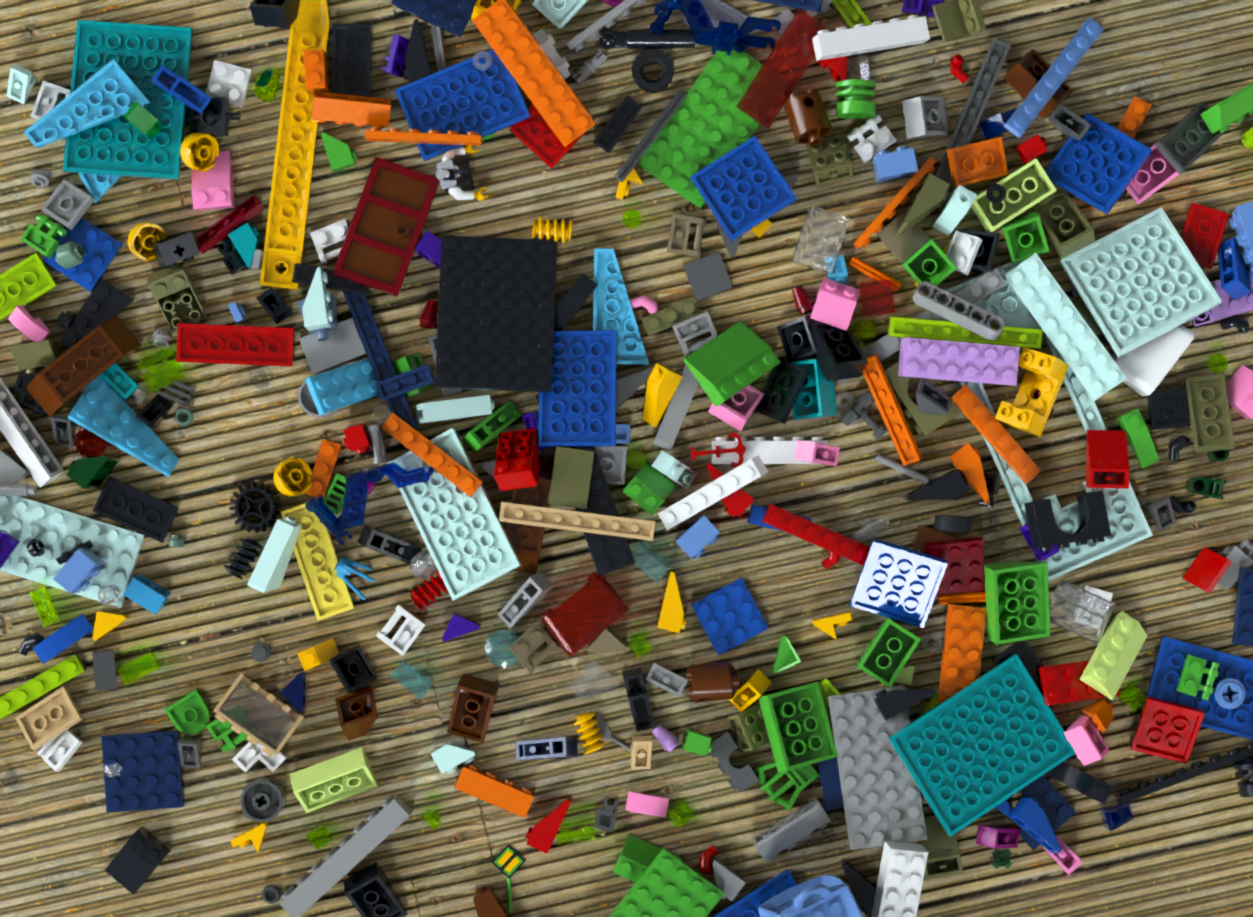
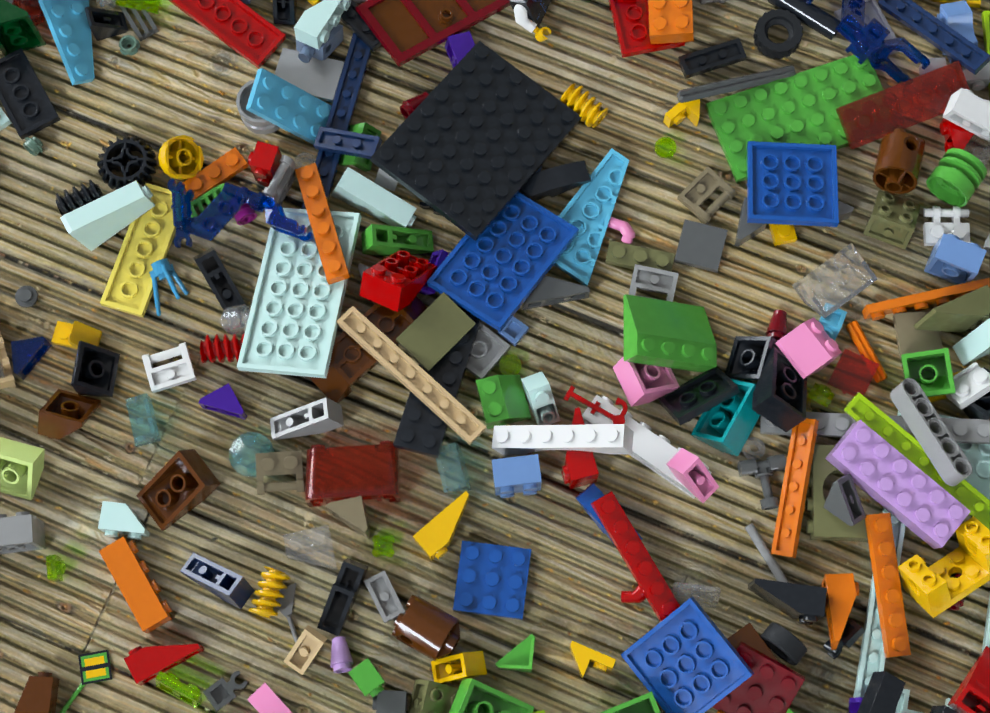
camera: 40 degrees right, 15 degrees down
(659, 391) = (581, 312): yellow slope -> none
(676, 411) = (583, 345): light grey beam -> none

